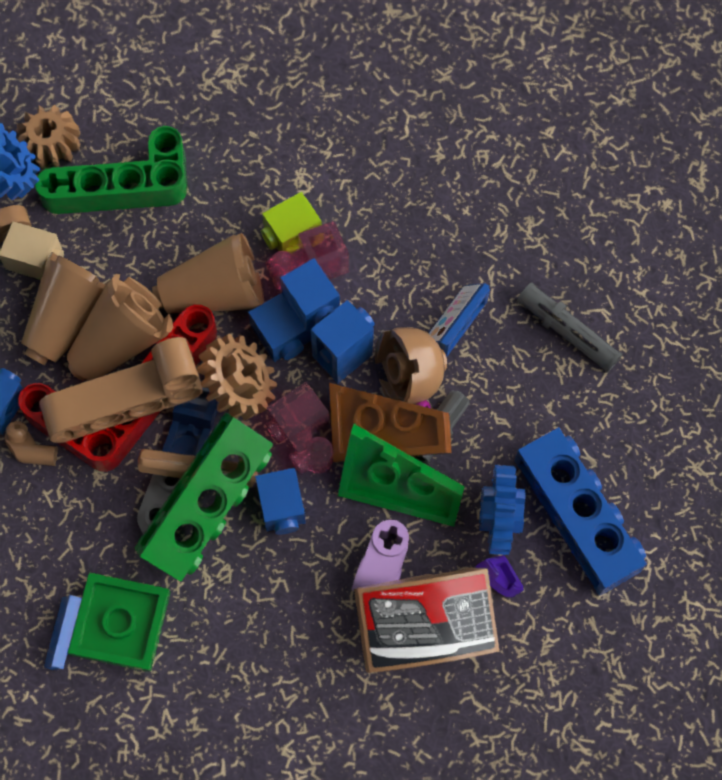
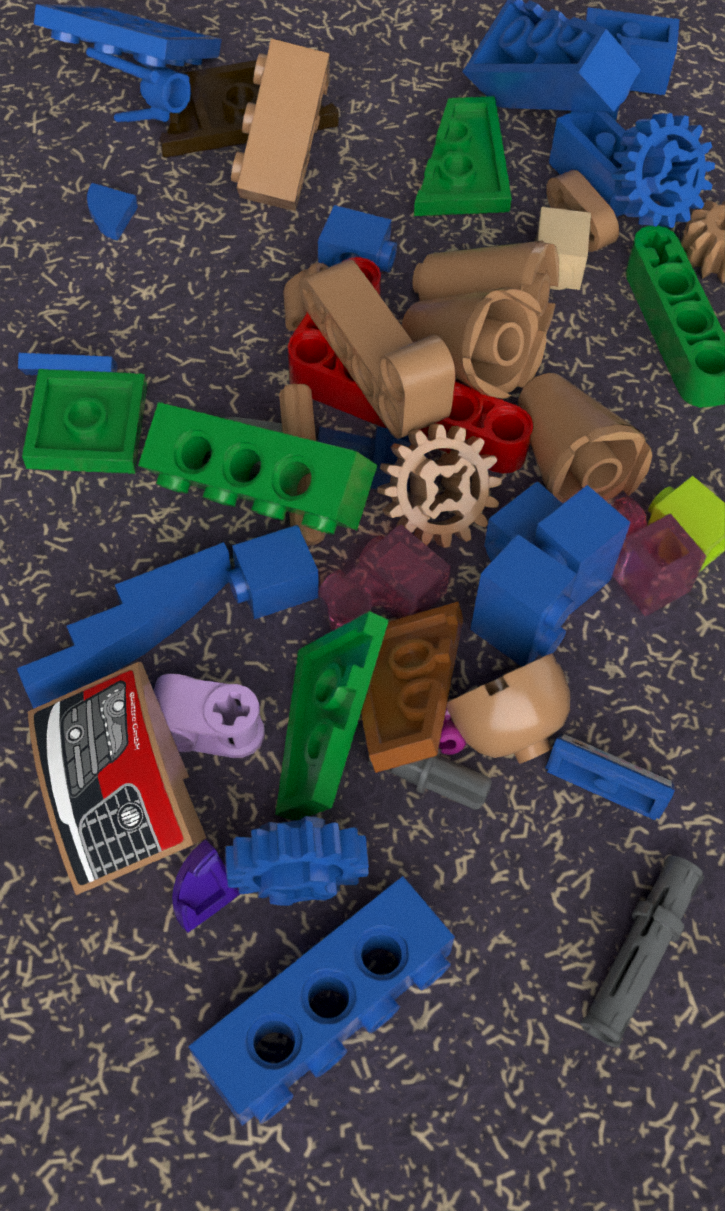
camera: 80 degrees right, 10 degrees down
(300, 592) = (147, 614): none -> blue slope

